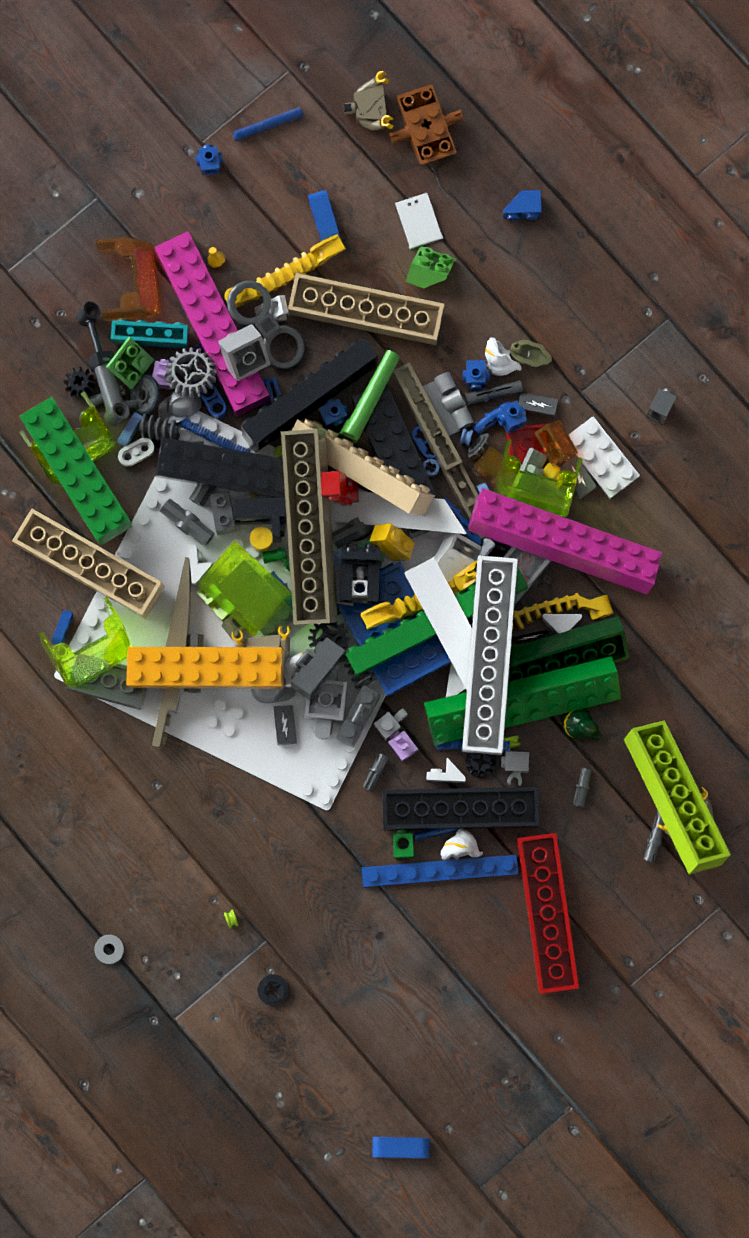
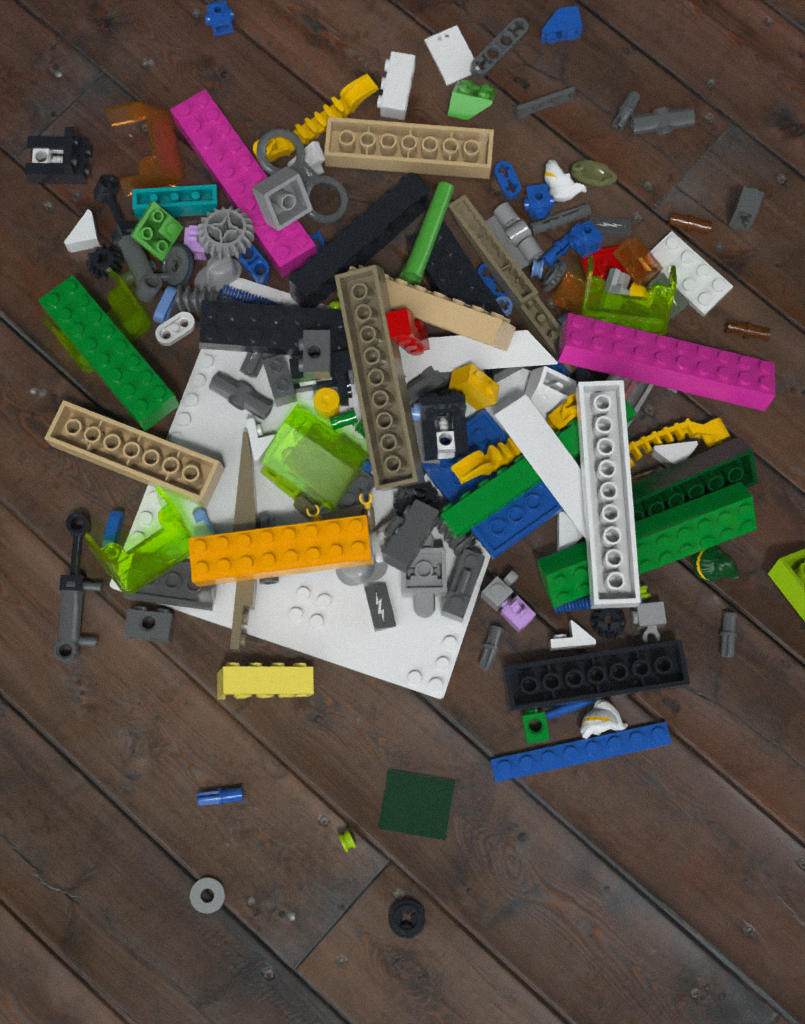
camera: 10 degrees left, 5 degrees down
(21, 682) = (72, 592): none -> dark grey piece
(65, 277) = (65, 162): none -> black brick
(65, 354) = (84, 234): none -> white slope
(94, 722) = (160, 632): none -> dark grey brick
(129, 868) = (220, 796): none -> blue axle
(139, 625) = (200, 515): none -> medium blue hand
(177, 776) = (265, 681): none -> light yellow wedge
(215, 258) = (238, 116): yellow rock -> none
(259, 510) = (315, 367): none -> dark grey brick
(294, 897) = (416, 805): none -> clear green piece
(323, 214) = (348, 58): blue beam -> none
(331, 419) = (389, 259): blue brick -> none
(363, 245) = (396, 85): none -> white brick
(456, 348) = (503, 182): none -> blue beam
(462, 219) = (499, 48): none -> dark grey beam
(496, 276) = (543, 102): none -> dark grey slope
(547, 913) = (715, 786): red brick -> none
(570, 295) = (626, 110): none -> dark grey axle
(601, 310) = (662, 120): none -> dark grey piece
(610, 411) = (689, 223): none -> reddish brown pin
(646, 518) = (748, 330): none -> reddish brown pin

